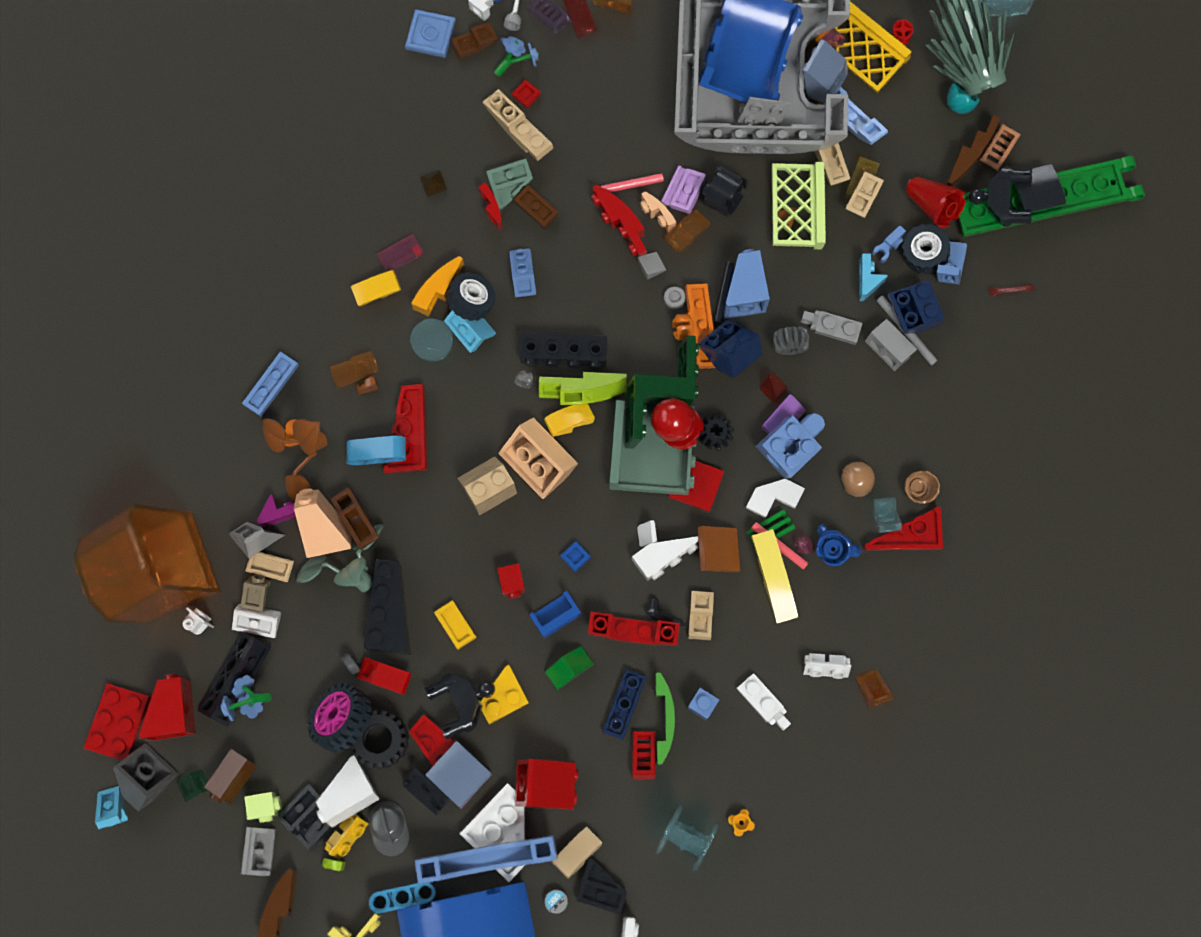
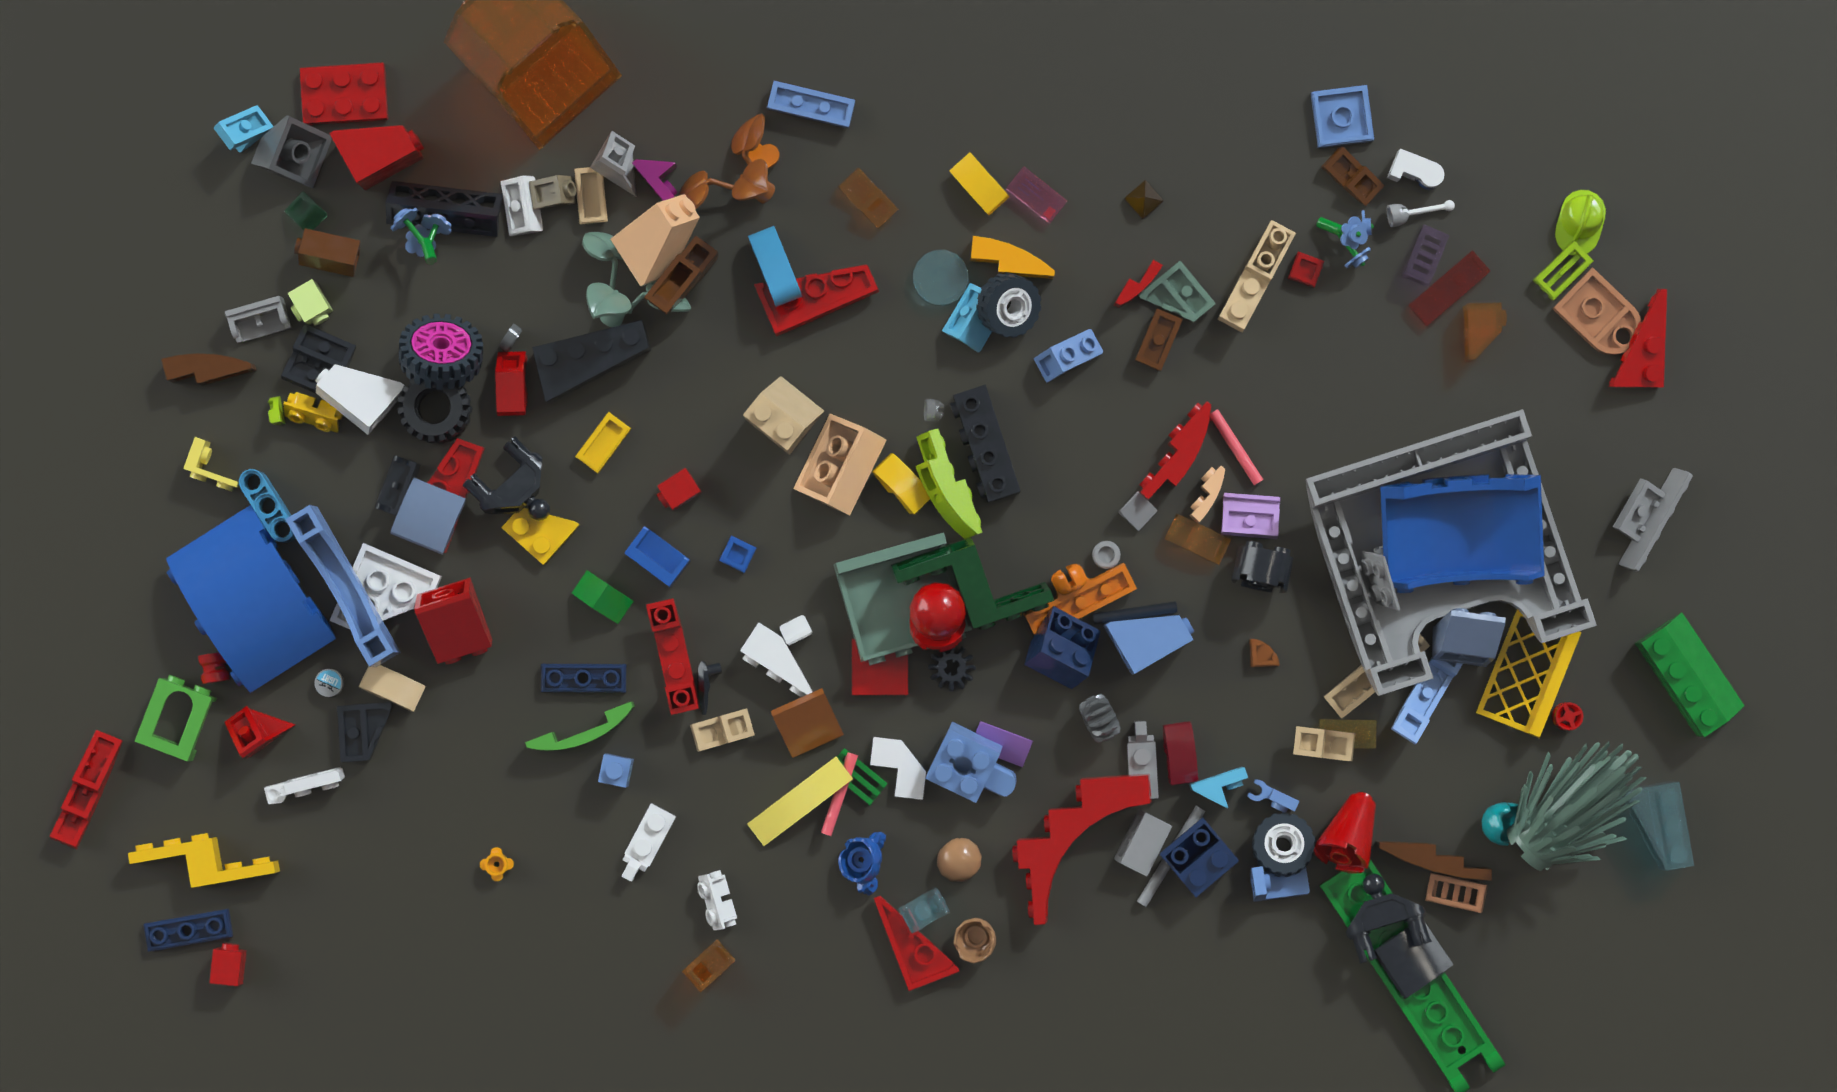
camera: 65 degrees right, 10 degrees up
(196, 621) = (491, 138): white hinge -> none
(369, 386) = (852, 222): dark orange tile -> none
(389, 828) = (340, 458): dark grey piece -> none
(644, 774) = (509, 729): red slope -> none
(695, 844) = (450, 795): clear light blue piece -> none
(773, 387) = (1034, 717): clear red slope -> none
(805, 545) = (852, 823): clear pink hinge -> none
(816, 208) = (1289, 689): yellowish green fence -> none
(834, 38) = (1519, 629): clear pink slope -> none
(836, 295) = (1180, 753): none -> dark red slope
(860, 392) = (1043, 854): none -> red arch
(994, 291) = (1262, 947): clear red hinge -> none

